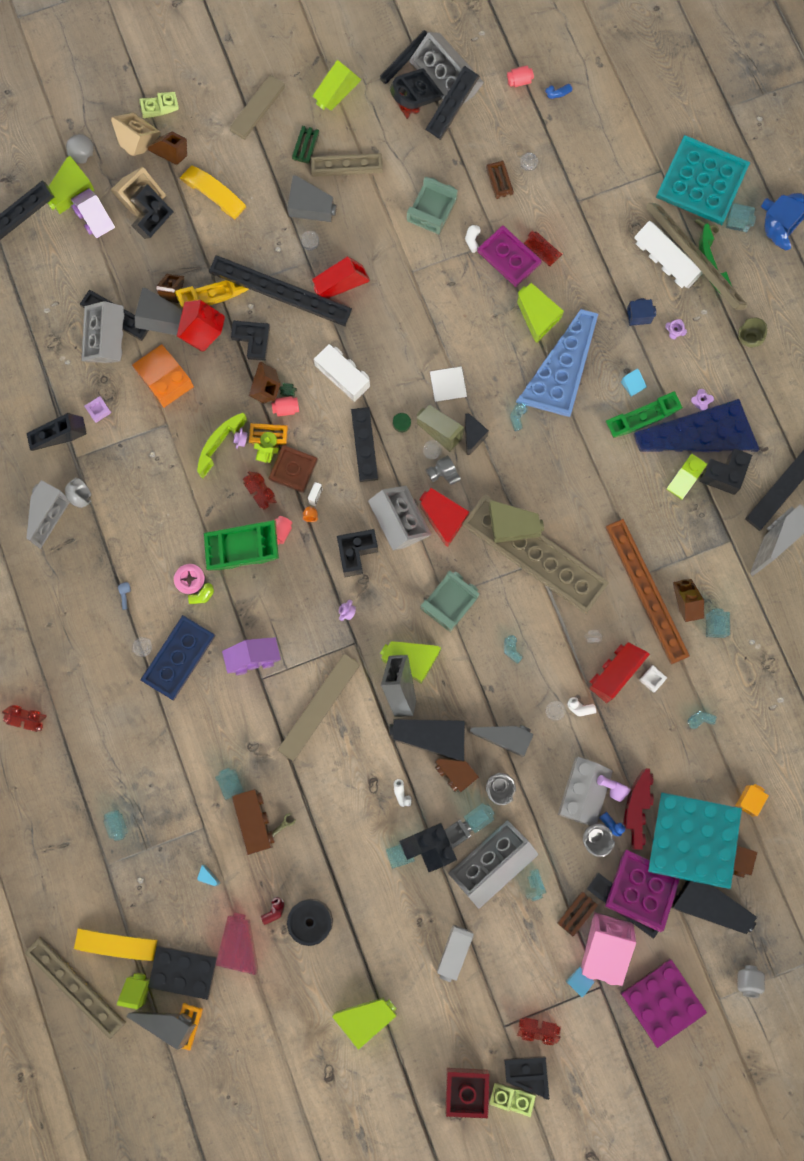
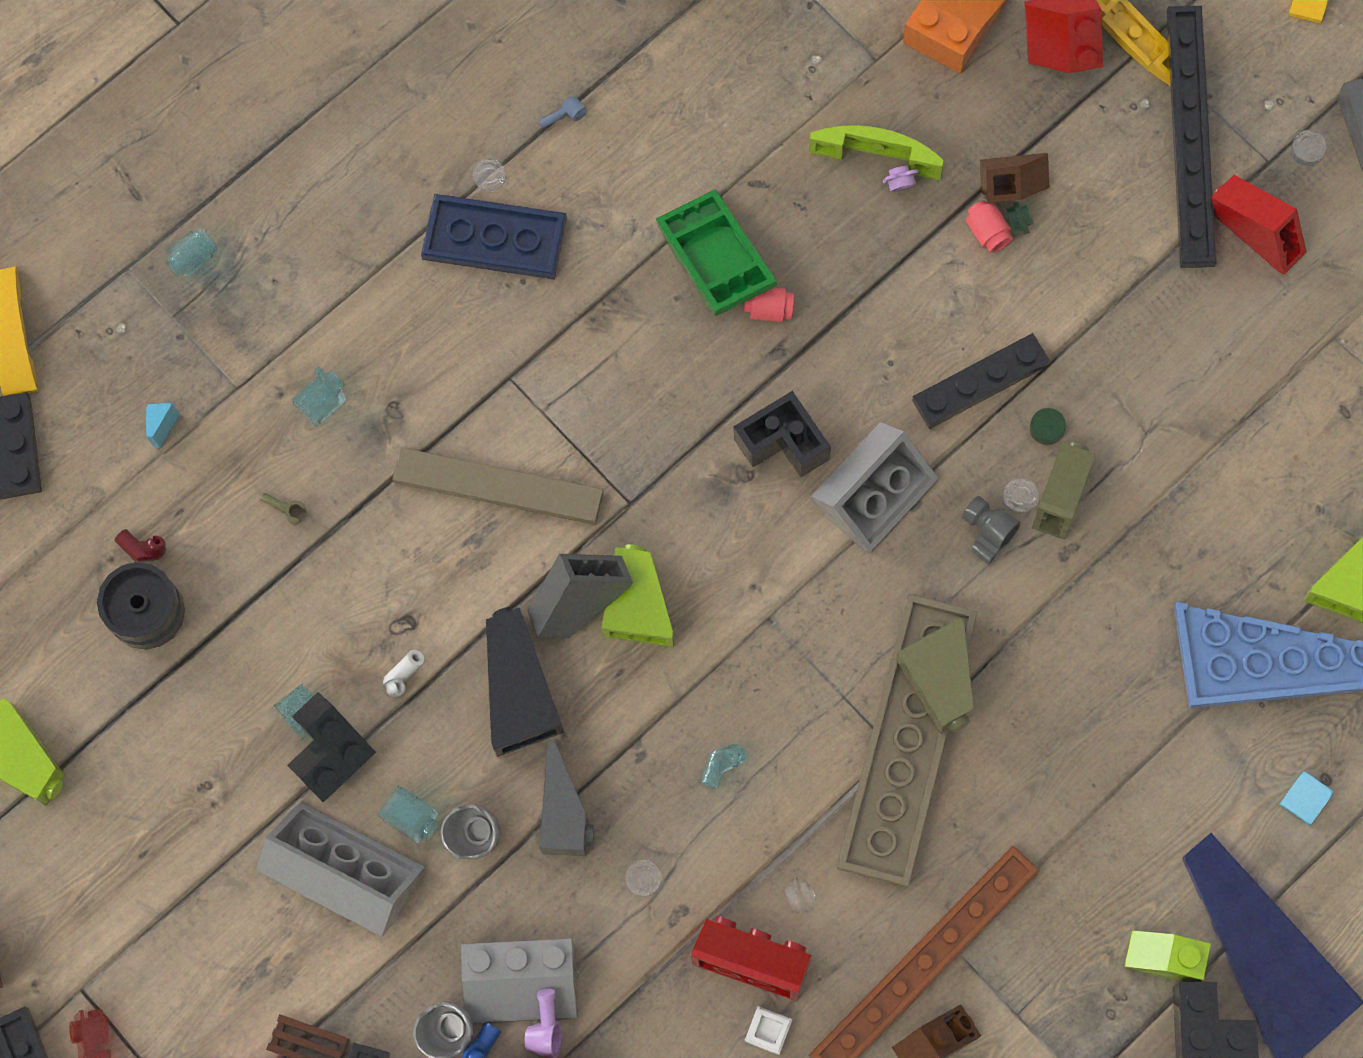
camera: 75 degrees right, 5 degrees down
(32, 719) = (308, 37): clear red hinge -> none
(182, 574) = (636, 187): bright pink gear -> none
(203, 596) = (611, 232): lime arm -> none
(237, 945) = (67, 512): clear pink slope -> none
(251, 655) = (540, 340): medium lavender brick -> none
(253, 821) = (270, 455): reddish brown brick -> none
(255, 482) = (835, 234): clear red hinge -> none
(256, 334) = (1092, 133): black plate -> none
(266, 447) = (896, 223): lime hips -> none
(284, 428) = (938, 246): light orange tile -> none
(293, 468) = (887, 284): copper tile -> none
(310, 514) = (817, 341): orange hinge -> none
(315, 494) = (856, 334): white tile -> none
(342, 372) = (1091, 292): white brick -> none
(346, 610) = (676, 464): lavender plate -> none
(443, 514) = (909, 556): red slope -> none
(448, 384) = (1155, 478): white sticker -> none
(450, 601) = (762, 627): sand green panel -> none
(454, 953) = (172, 856): light grey slope -> none
(458, 773) = (470, 753): reddish brown slope -> none
(458, 833) = (368, 788): dark grey bracket -> none
(474, 433) = (1077, 553): black slope -> none
(516, 414) = (1148, 612): clear light blue arm -> none
(535, 881) = (335, 953): clear light blue bracket -> none
(579, 709) = (662, 919): white arm -> none
(644, 416) = (1248, 837): green slope -> none
(703, 405) = (1322, 940): lavender plate -> none

